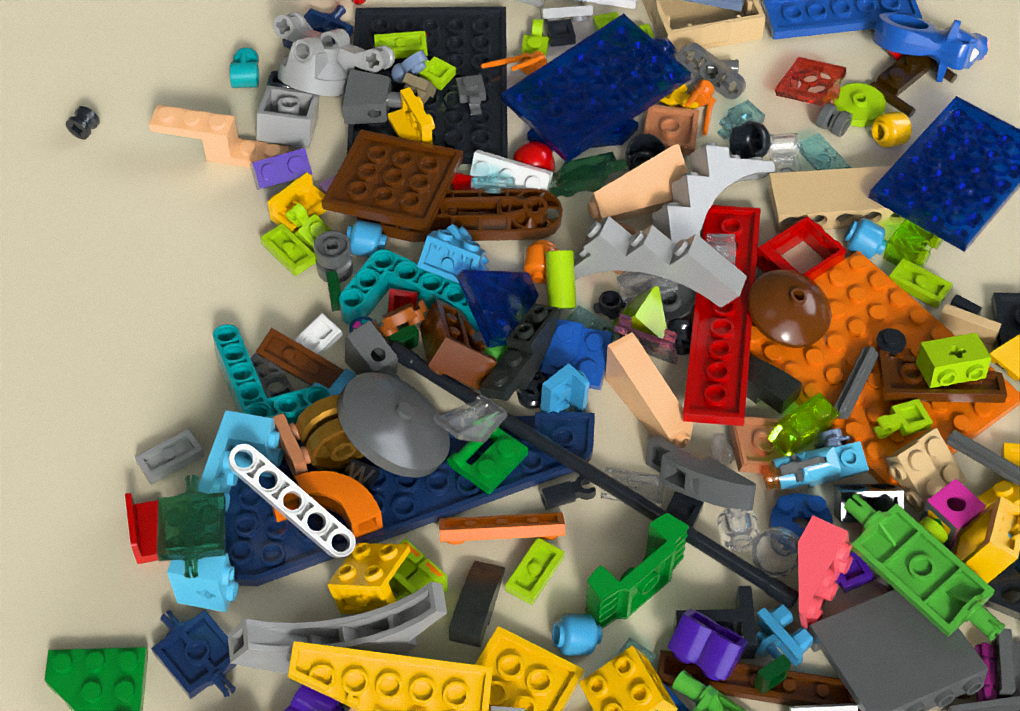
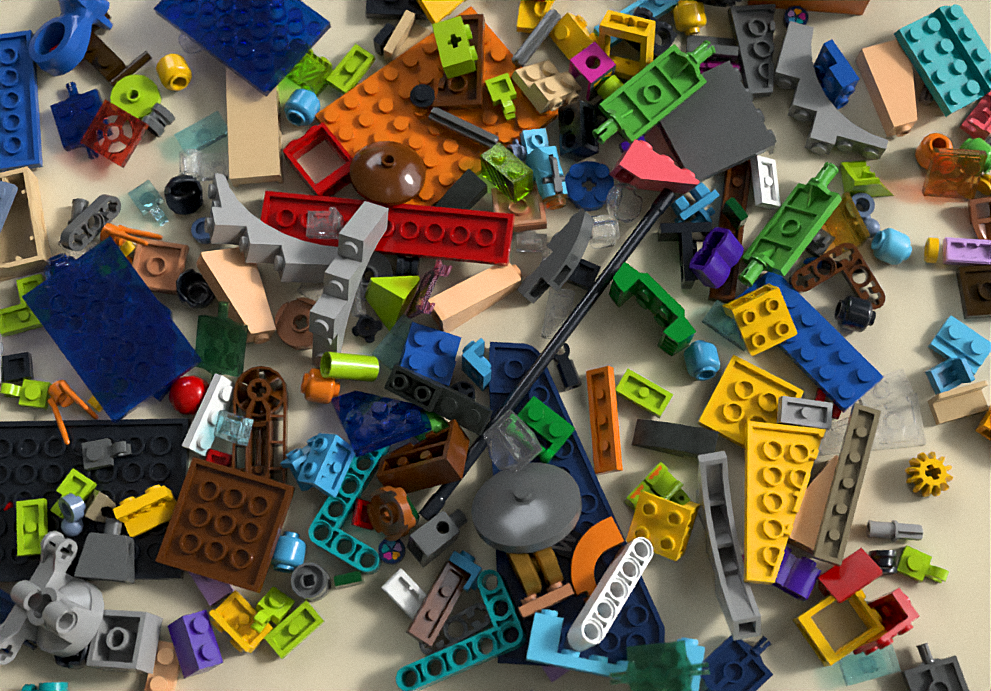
camera: 90 degrees left, 20 degrees up
(835, 53) = (75, 116): none -> clear blue plate

